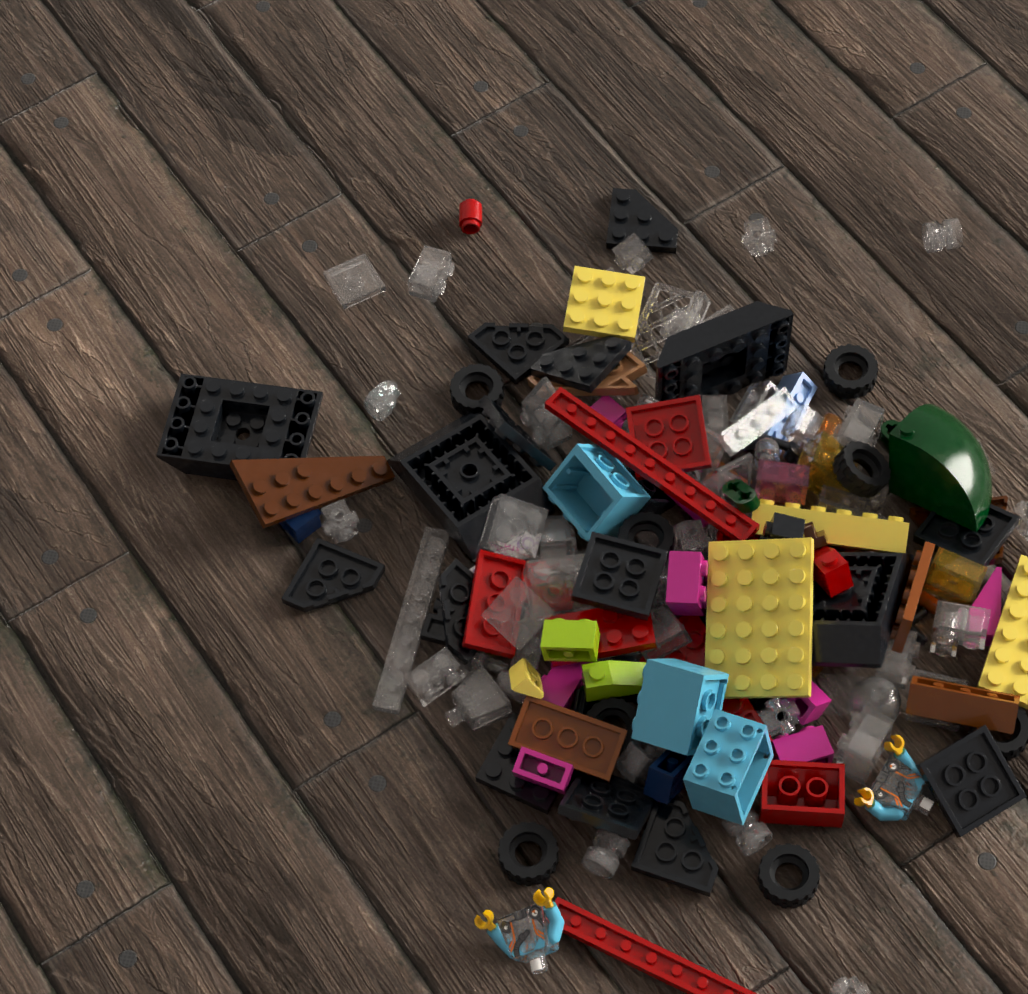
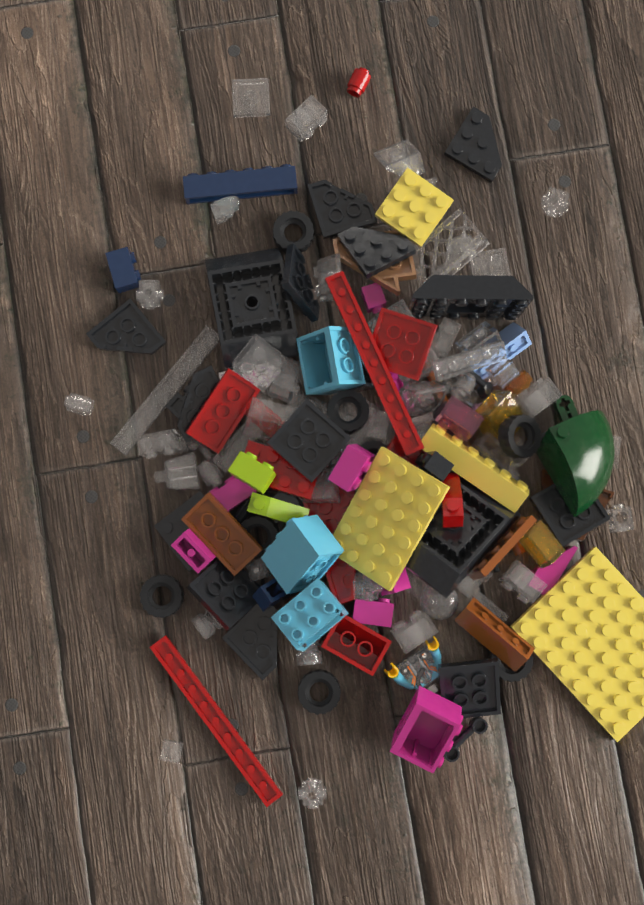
camera: 20 degrees right, 25 degrees up
(215, 411) = (97, 167): black slope -> none
(296, 486) = (126, 255): reddish brown wing -> none
(311, 680) = (79, 404): none -> clear brick
(395, 363) = (243, 184): none -> dark blue brick
(518, 613) = (230, 430): clear plate -> none
(526, 679) = (214, 480): light yellow slope -> none
(528, 932) = (131, 652): torso -> none
(560, 266) = (399, 157): none -> clear slope
(632, 254) = (457, 172): clear brick -> none
(741, 496) = (427, 417): dark green beam -> none
(820, 537) = (456, 476): reddish brown tile -> none
(850, 388) = (571, 332): black tyre -> none
(947, 844) = (427, 729): none -> dark pink container
(1004, 824) = (476, 725): none -> black bar

